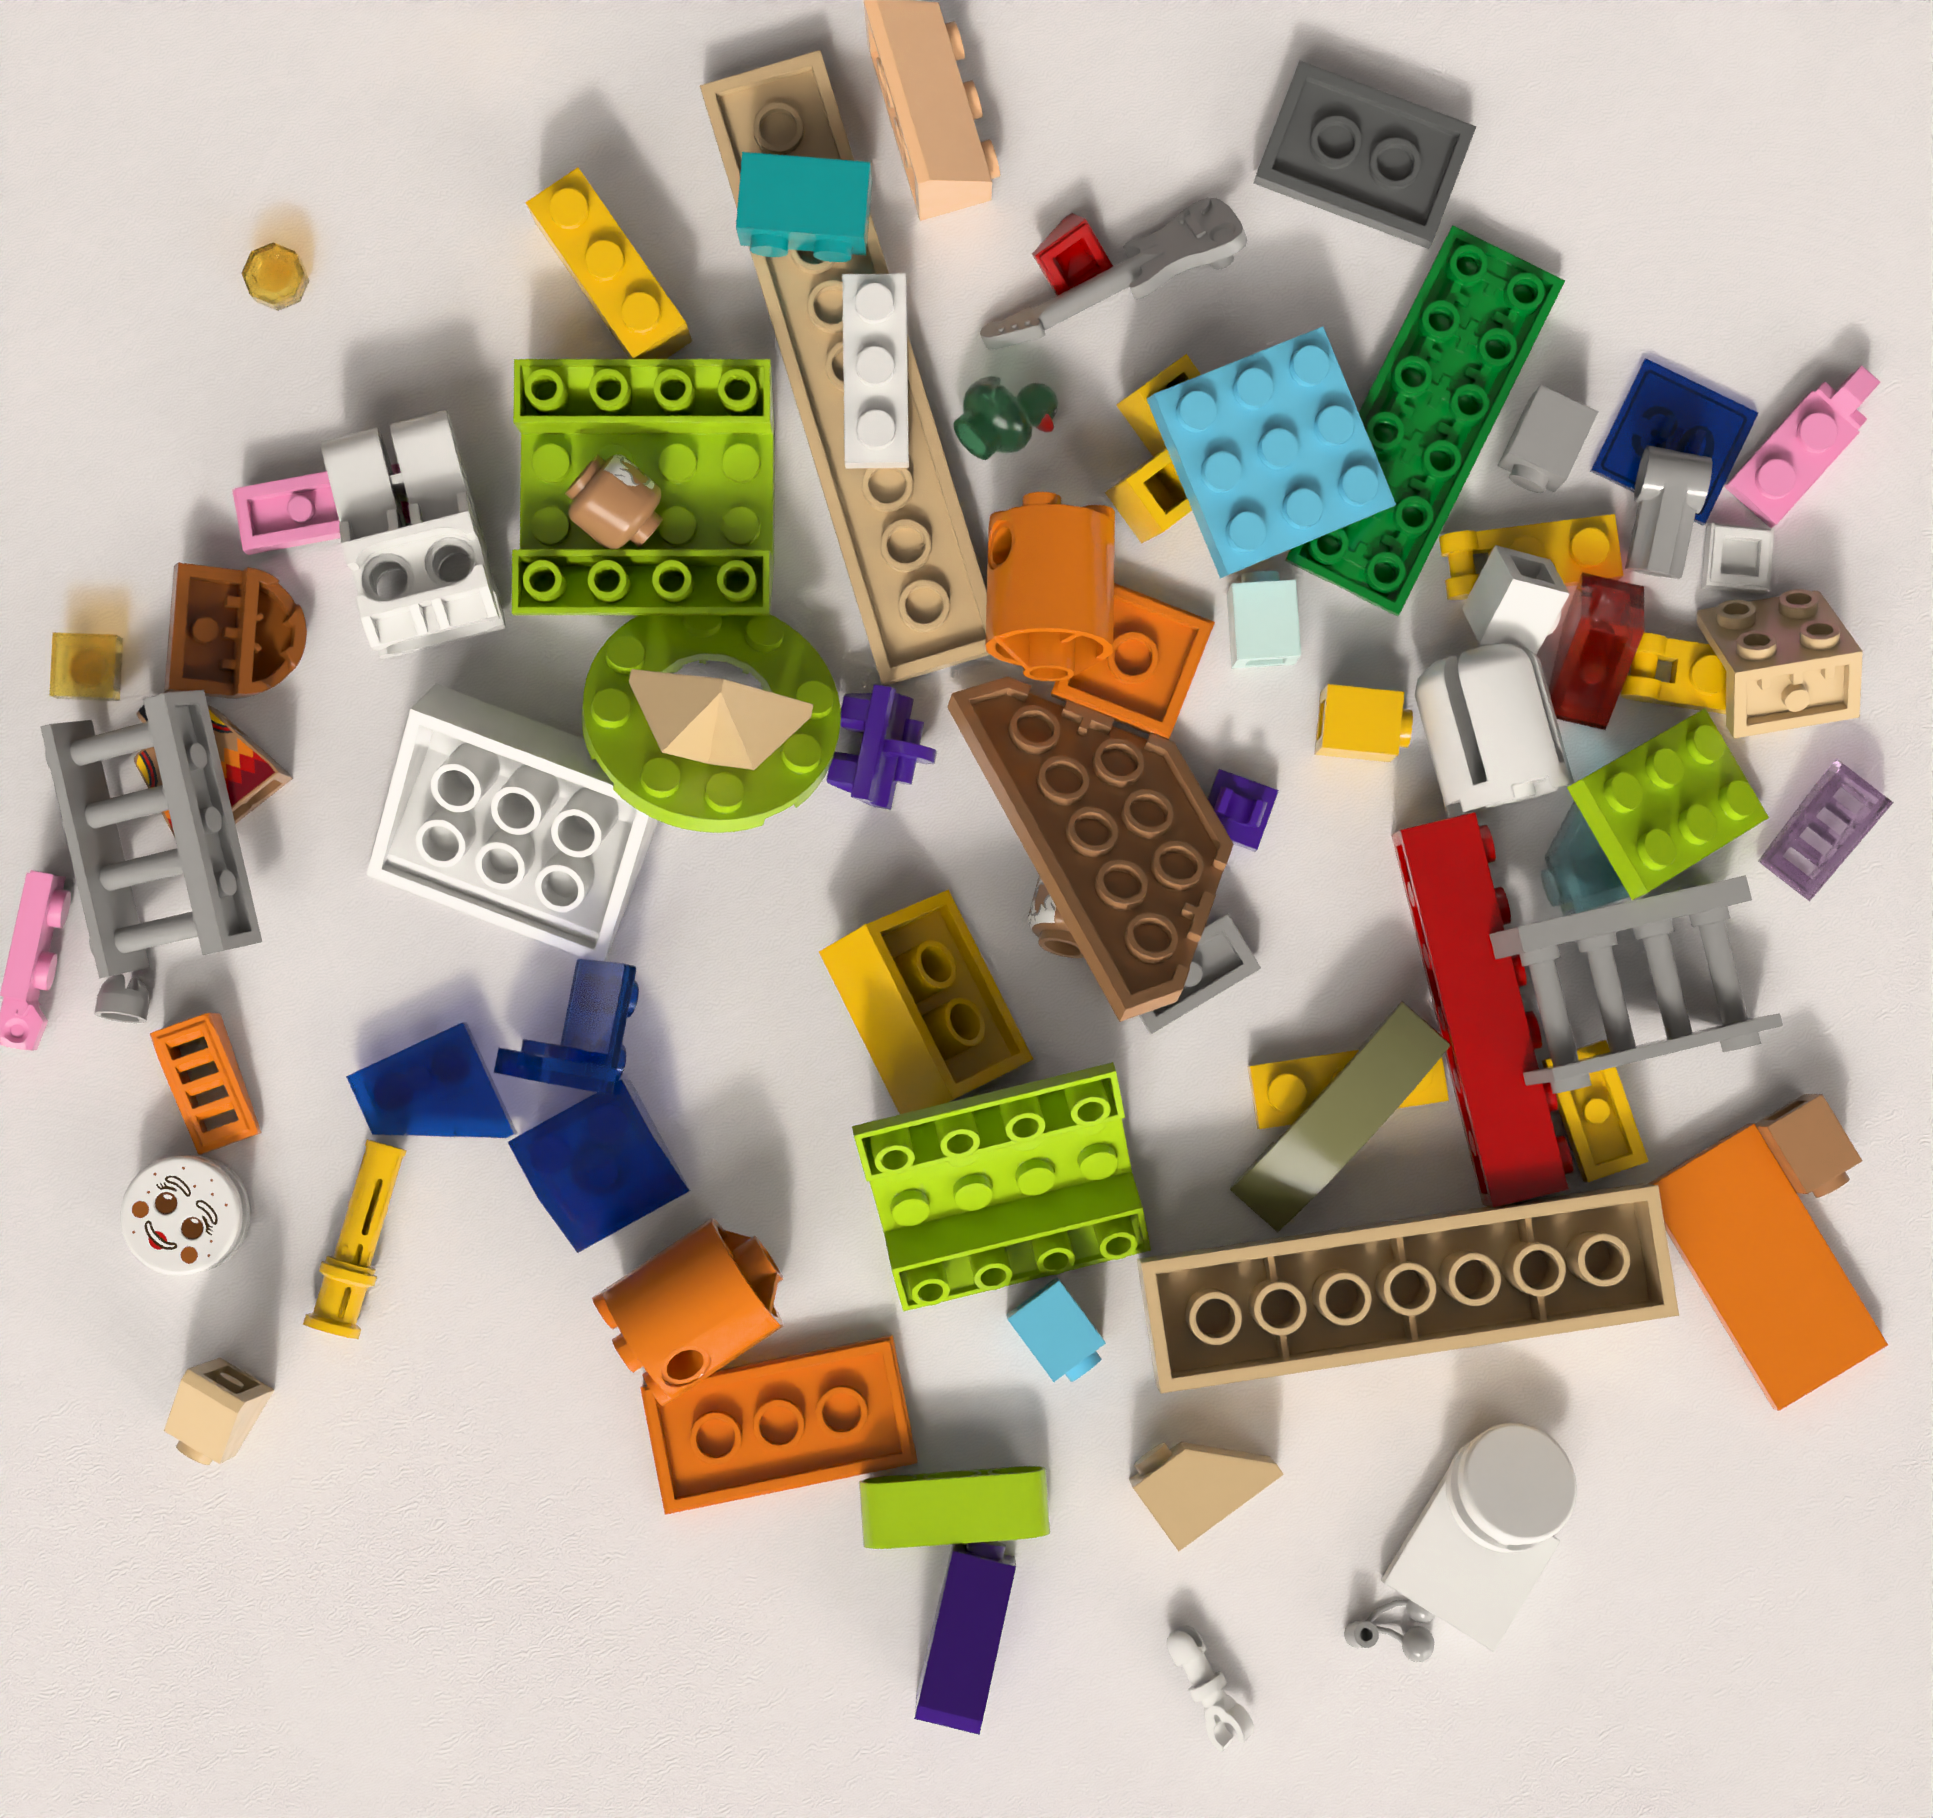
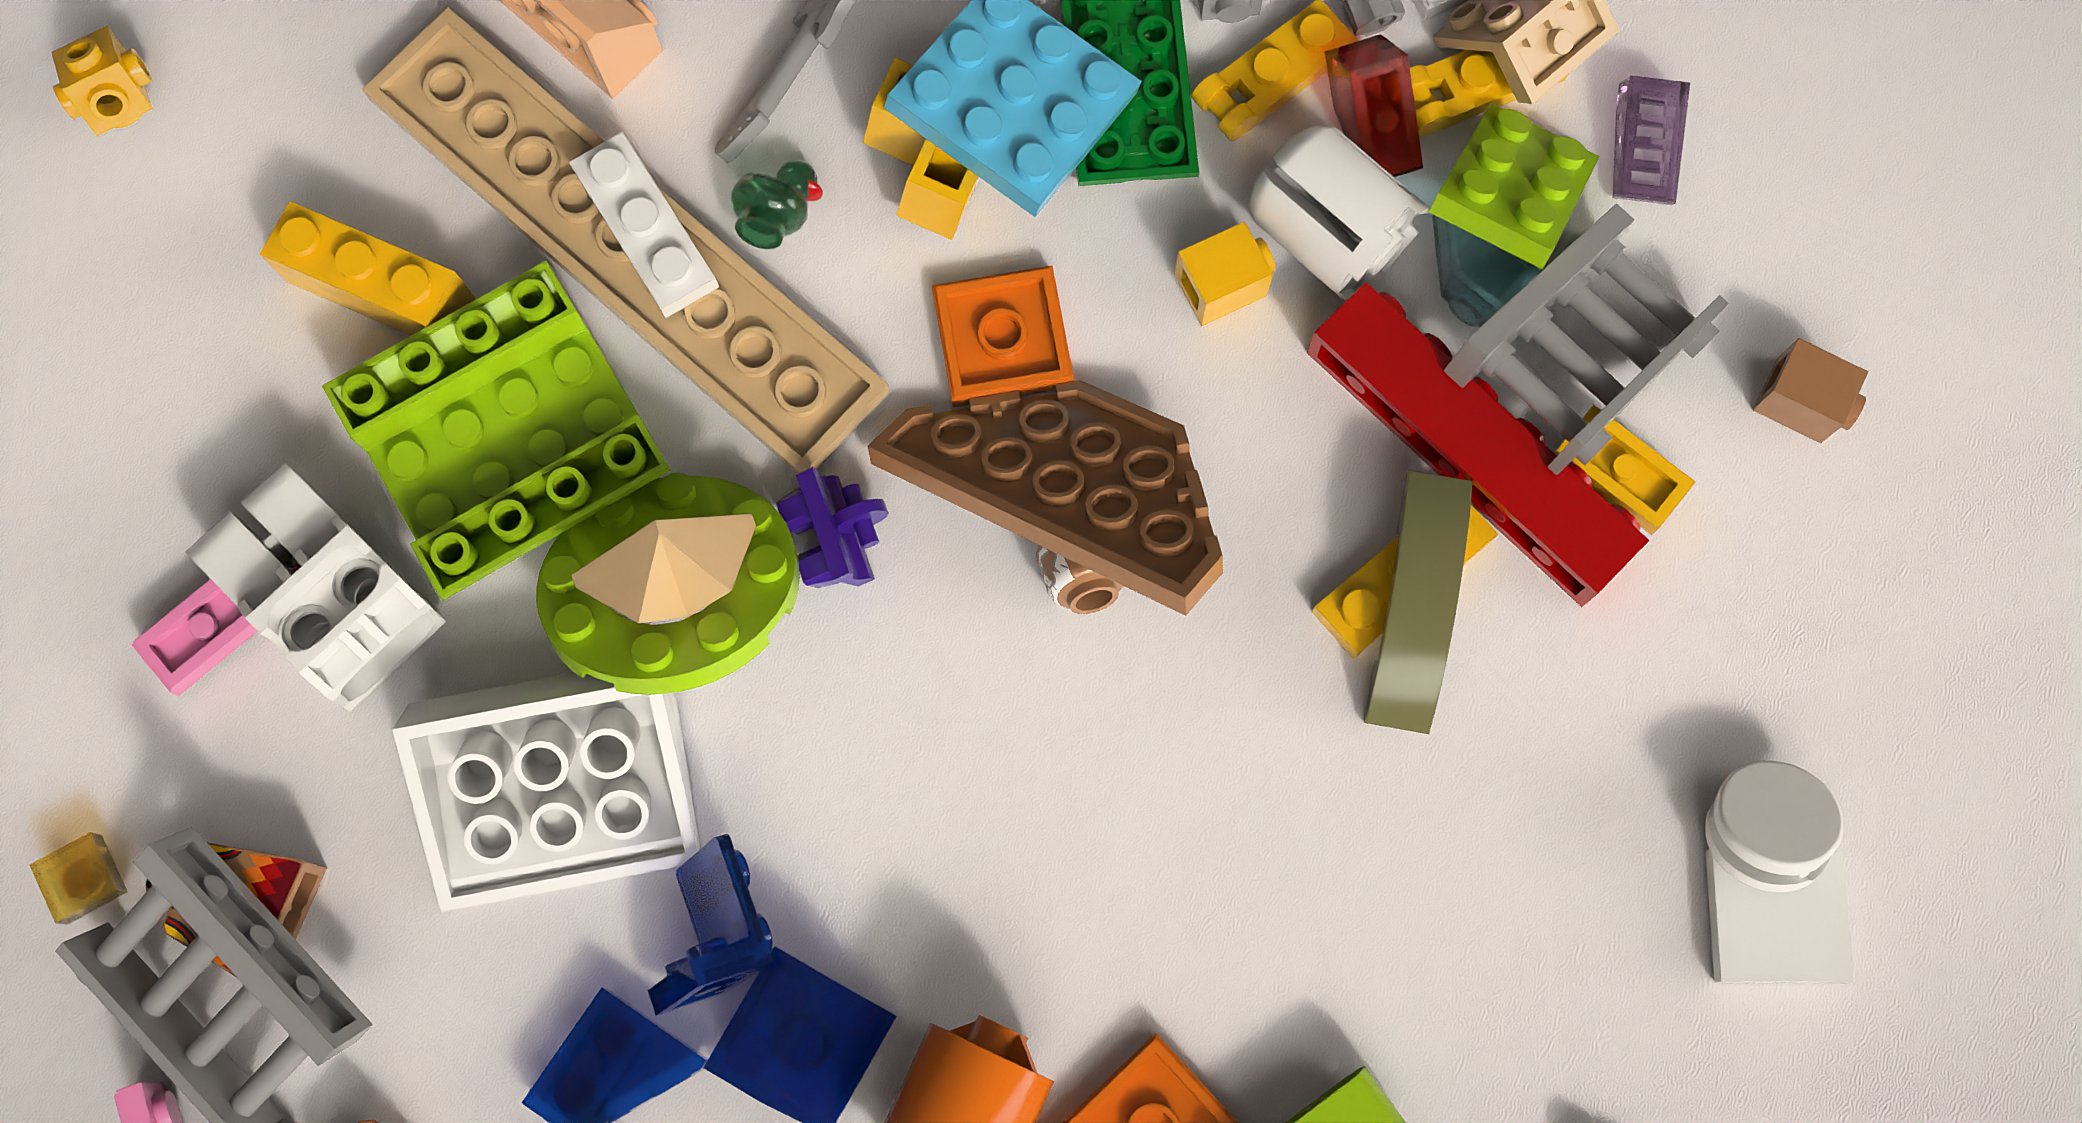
camera: 30 degrees left, 10 degrees down
(231, 632) = (198, 767): dark orange slope -> none
(275, 276) = (75, 447): clear yellow tile -> none
(614, 502) = (478, 453): medium nougat head -> none
(804, 206) = (502, 124): teal brick -> none
(925, 1004) = (1005, 723): yellow slope -> none
(1004, 1186) = (1169, 831): lime slope -> none
(1050, 586) = (897, 304): orange cylinder -> none
(1057, 1332) = (1298, 935): medium azure brick -> none
(1071, 254) = (752, 50): red slope -> none
(1198, 1486) = (1508, 998): tan slope -> none
(1218, 963) = (1239, 534): light grey plate -> none
(1242, 807) = (1171, 396): dark purple tile -> none
(1263, 621) = (1092, 240): light aqua brick -> none
(1407, 1287) = (1568, 711): tan brick -> none
(1416, 1642) = (1781, 1016): light grey piece -> none
(1515, 599) = (1286, 97): white brick -> none
(1765, 1267) = (1845, 514): orange tile -> none

